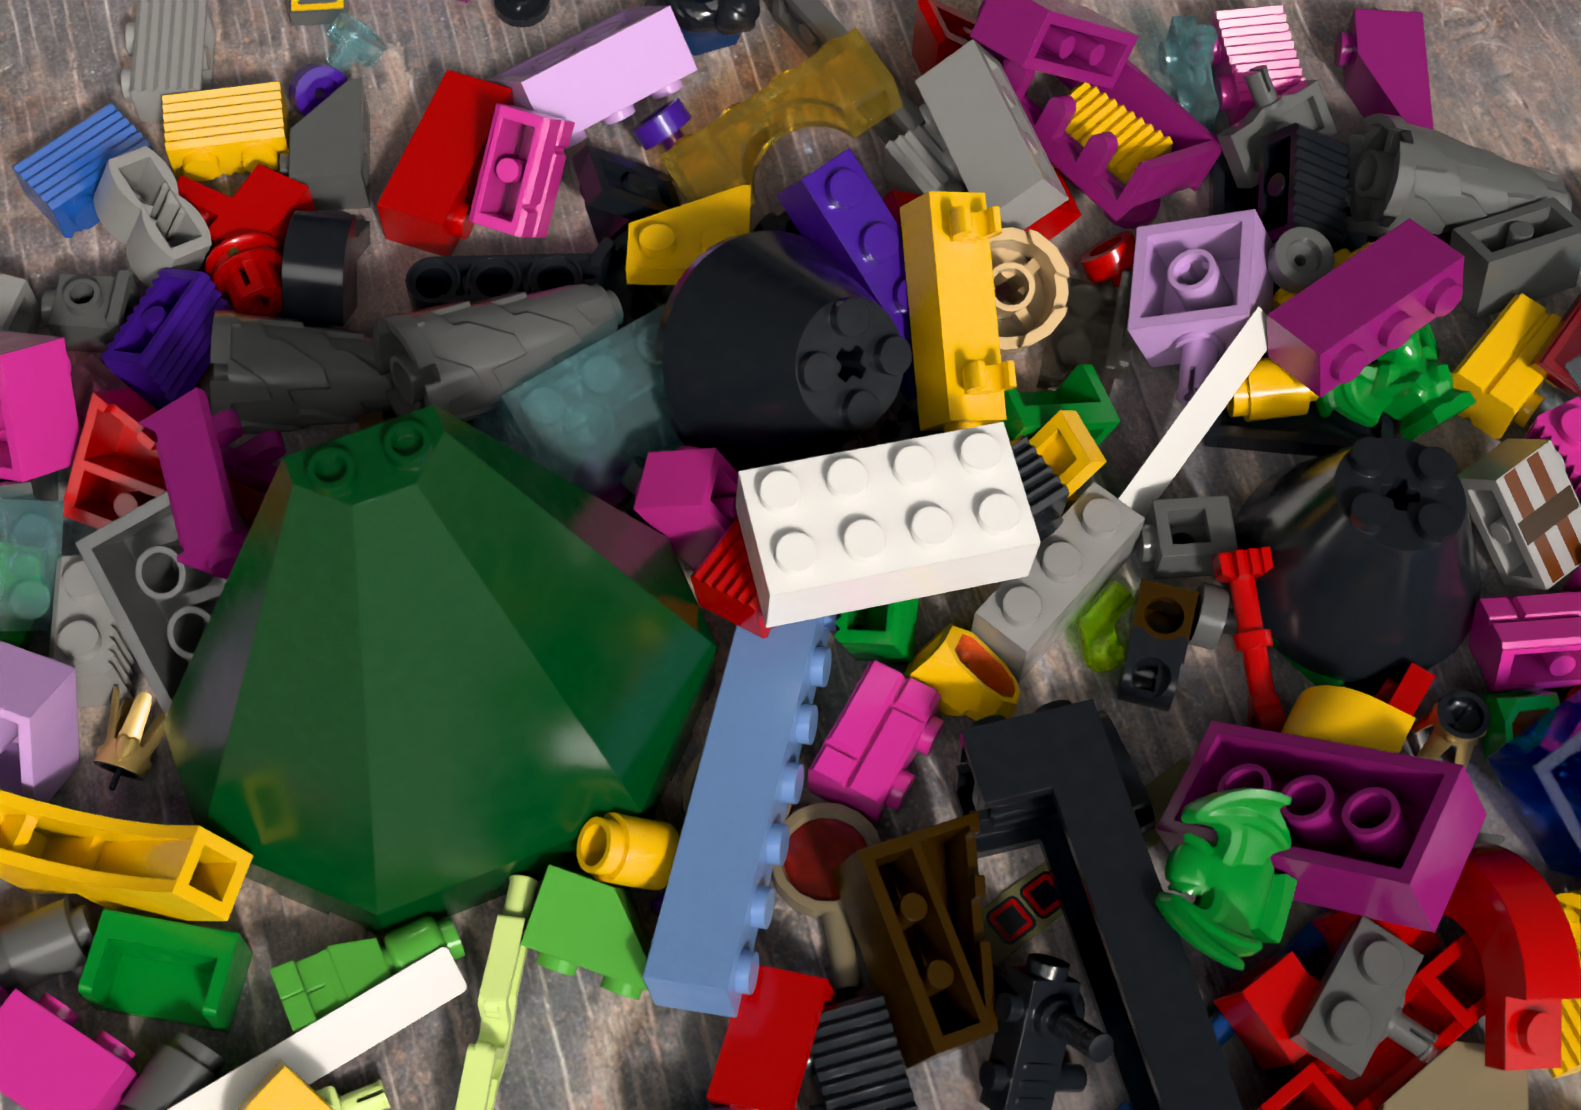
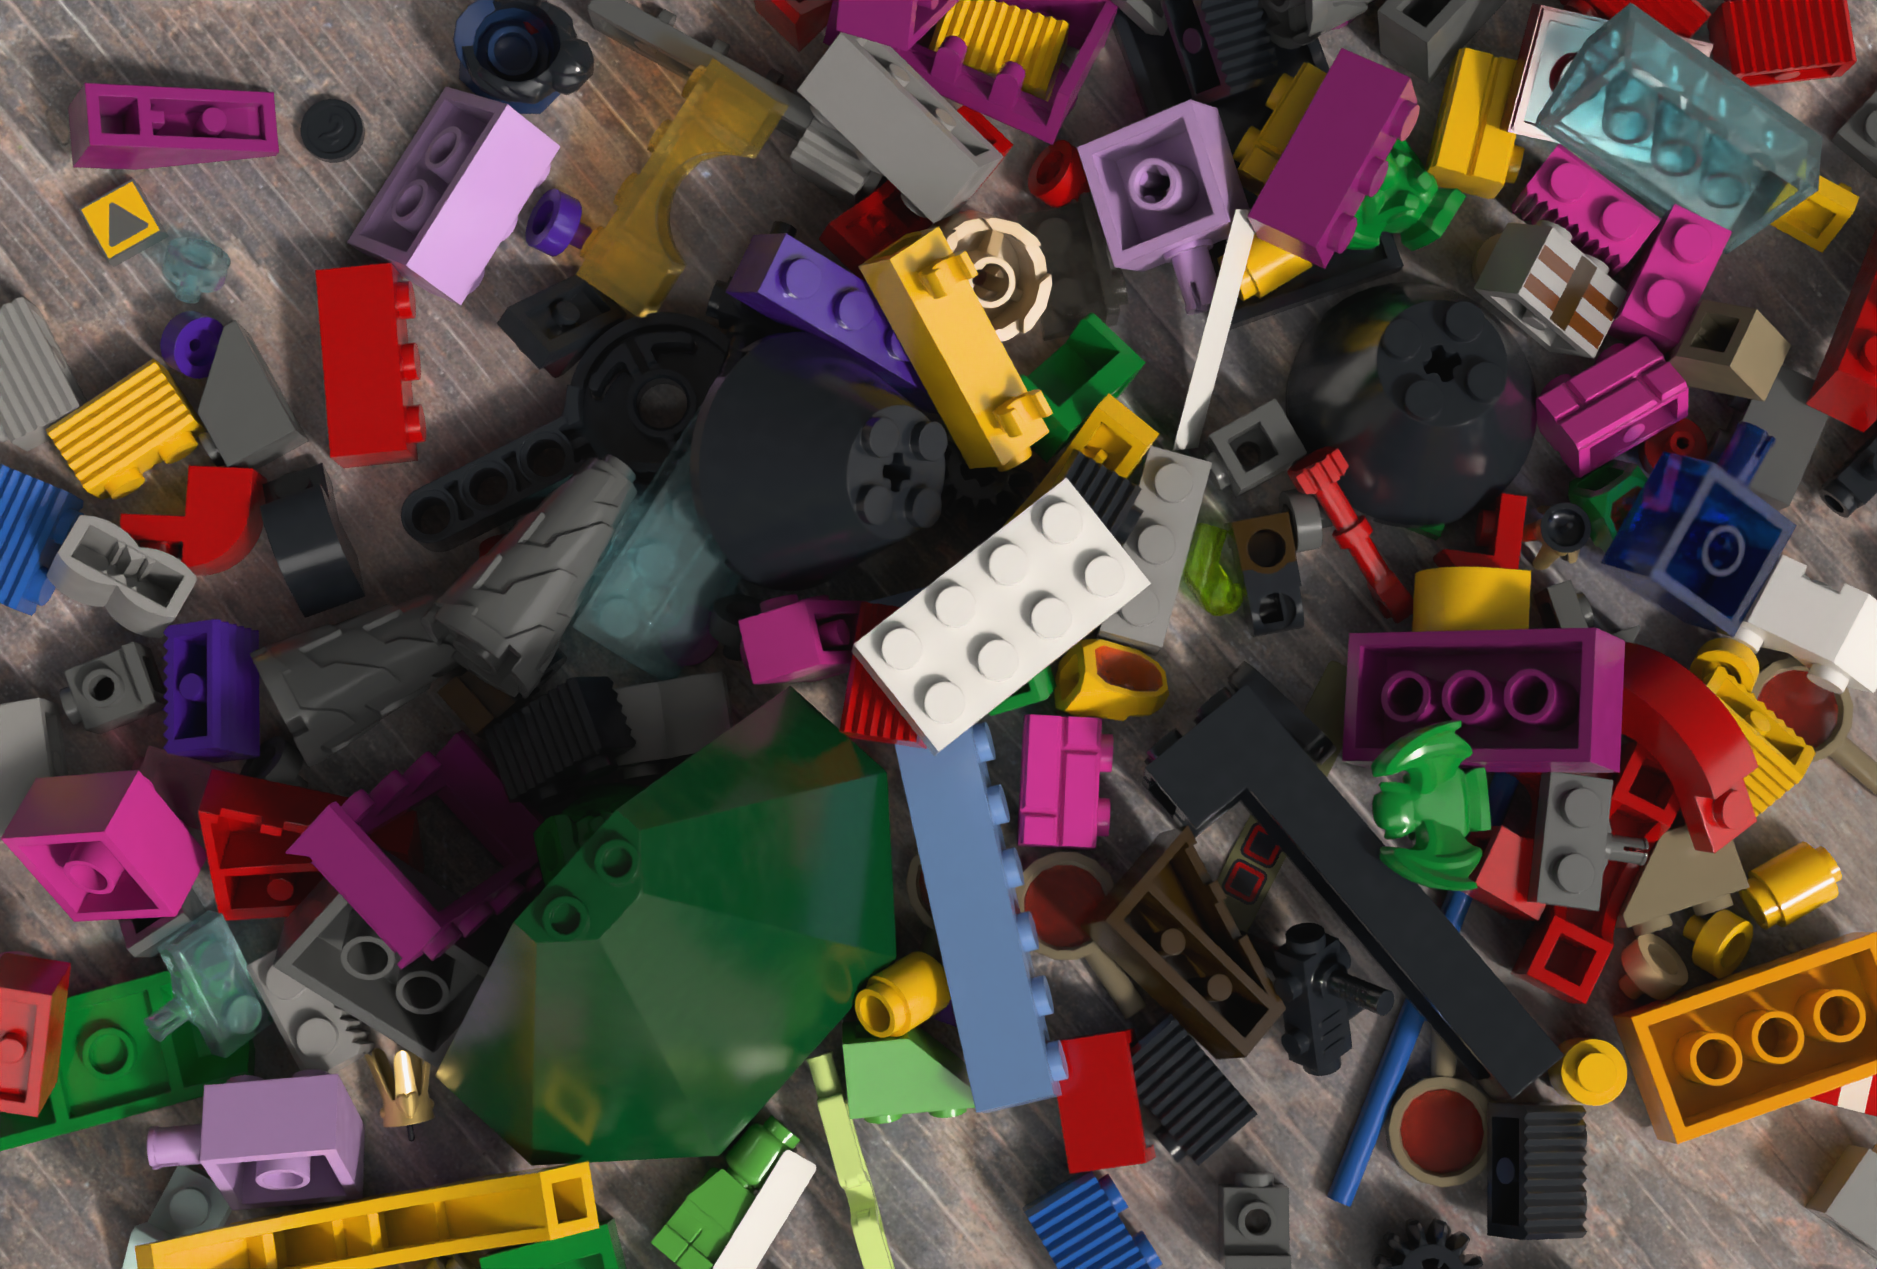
camera: 25 degrees left, 20 degrees up
(262, 274) = (247, 585): red piece -> none
(521, 171) = (453, 356): dark pink brick -> none
(671, 240) = (659, 356): yellow wing -> none
(1299, 259) = (1249, 123): dark grey tile -> none

